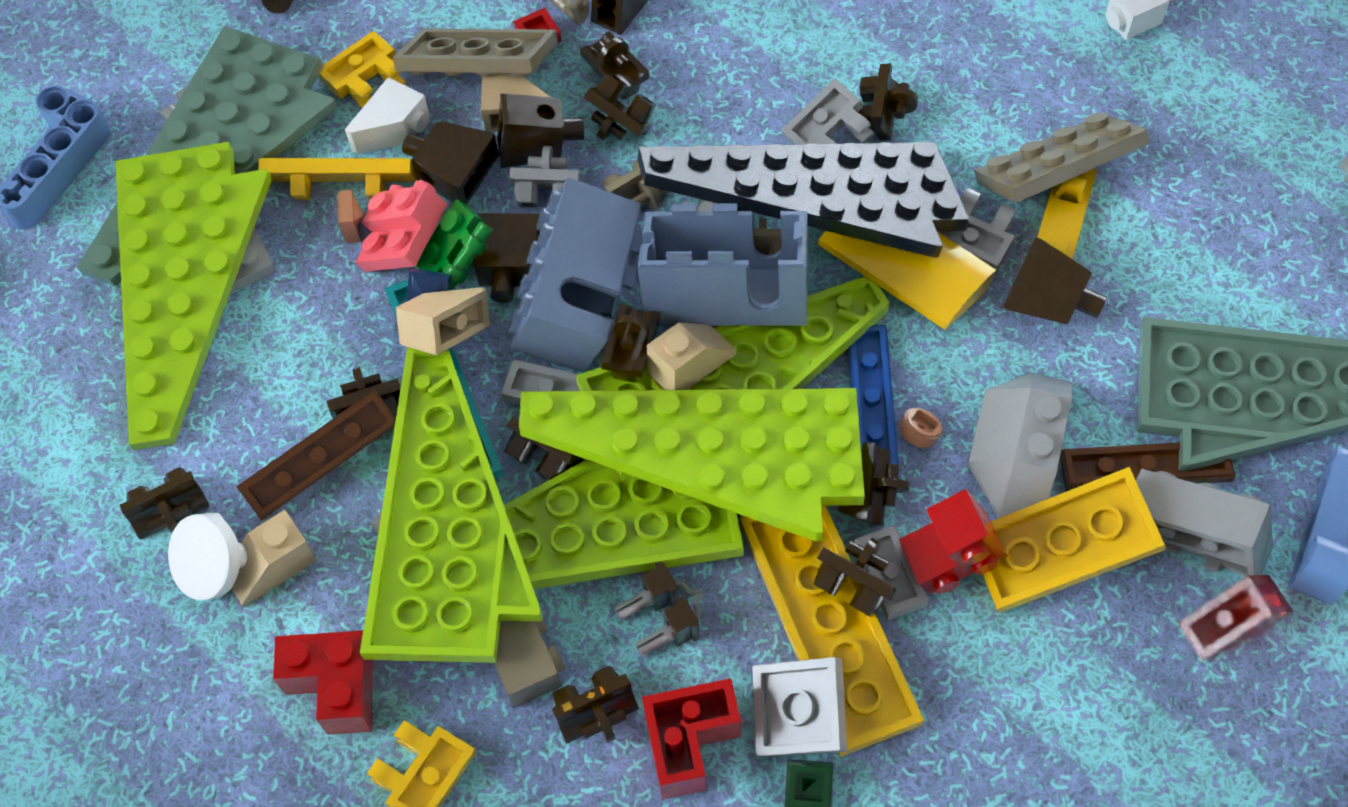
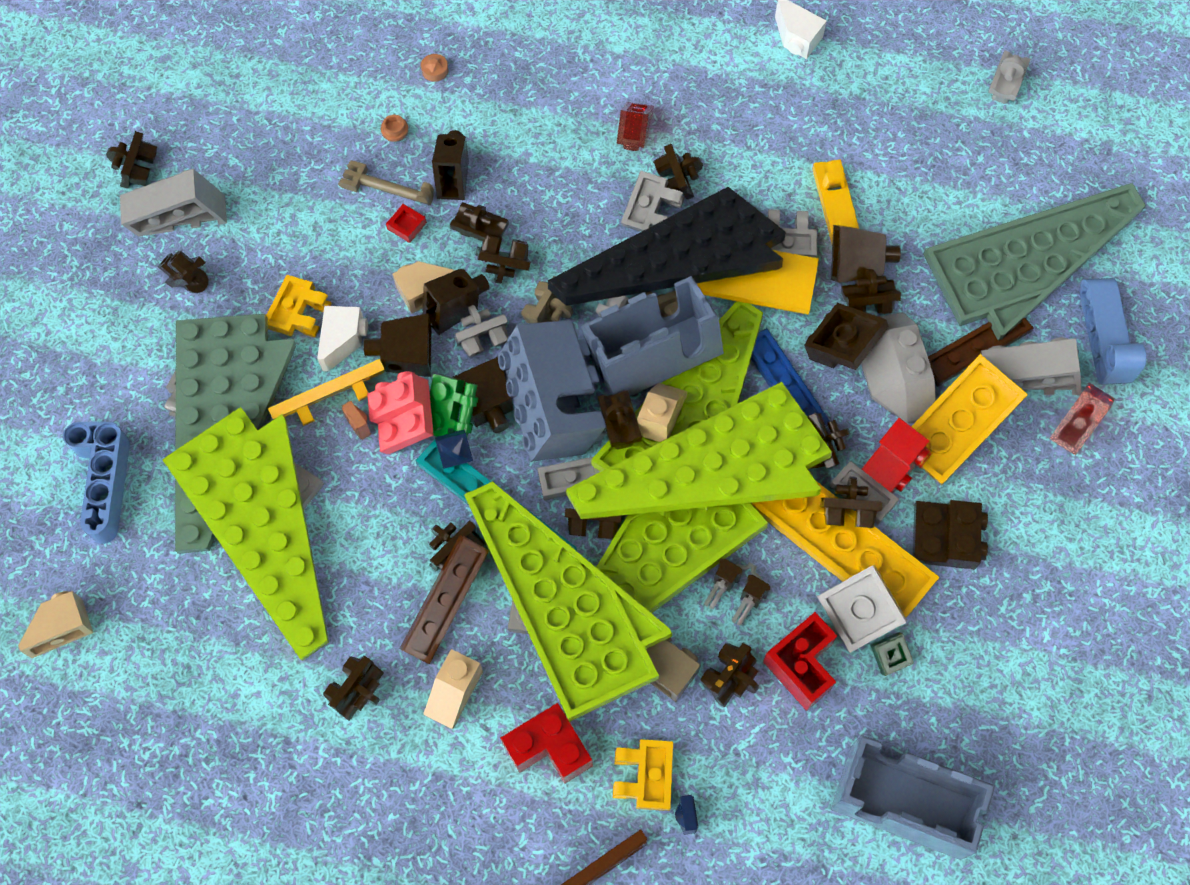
camera: 30 degrees left, 5 degrees up
(205, 556) = (411, 709): white tile -> none
(442, 319) = (477, 464): tan slope -> none
(476, 51) = (376, 258): dark tan plate -> none
(862, 29) = (634, 125): none -> clear red slope
(920, 427) = (828, 387): nougat tile -> none
(971, 675) = (949, 534): none -> dark brown plate
(972, 374) = (845, 337): none -> dark brown plate
(1038, 335) = (871, 291): none -> dark brown hips
(1061, 156) = (816, 162): dark tan plate -> none

